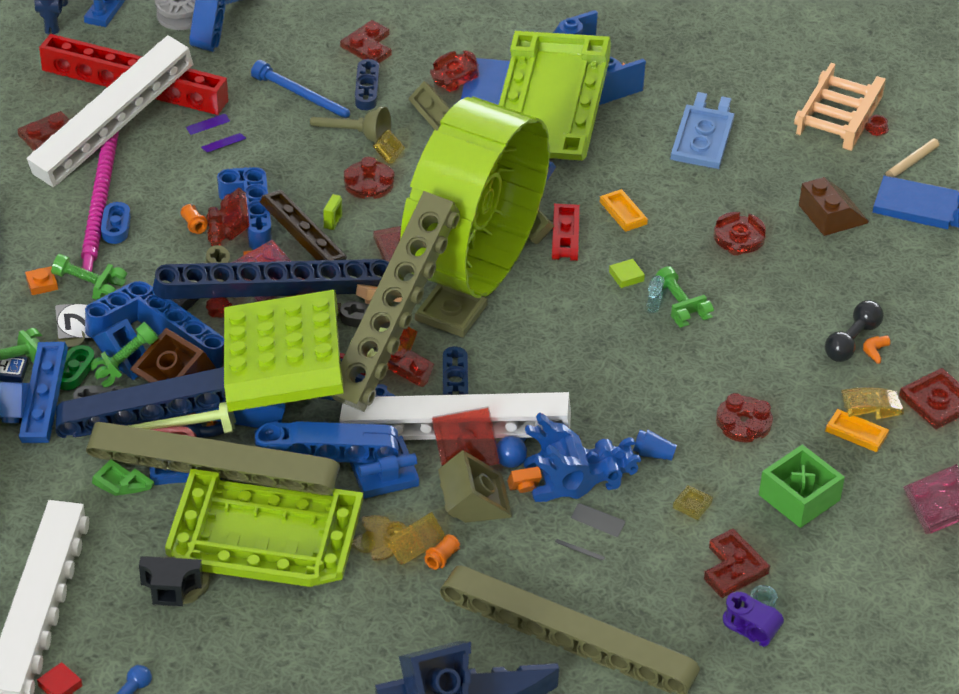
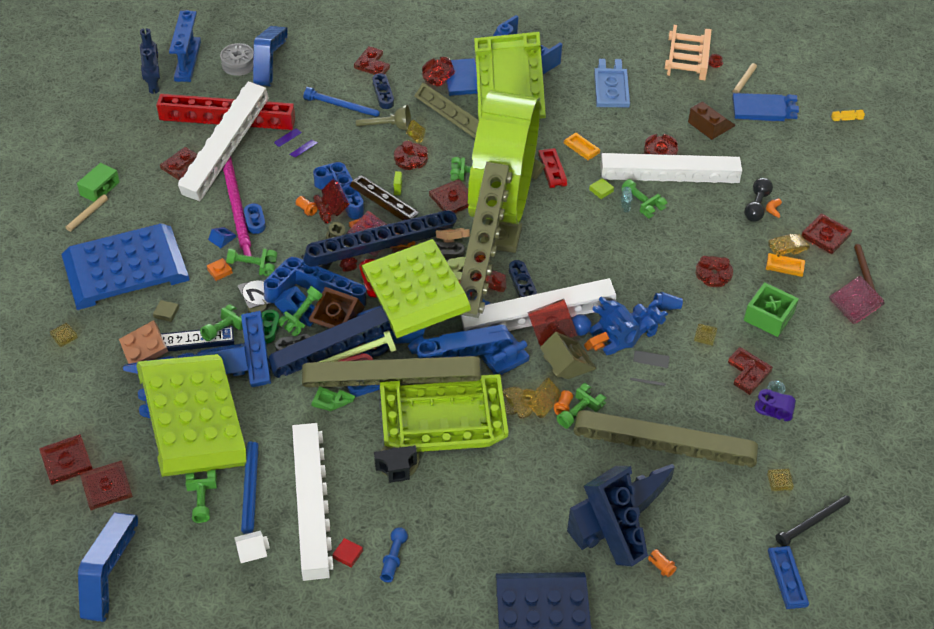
camera: 15 degrees left, 5 degrees up
(62, 238) = (221, 236): none -> blue slope
(474, 545) = (585, 400): none -> bright green bar
(740, 263) = (670, 168): none -> white brick

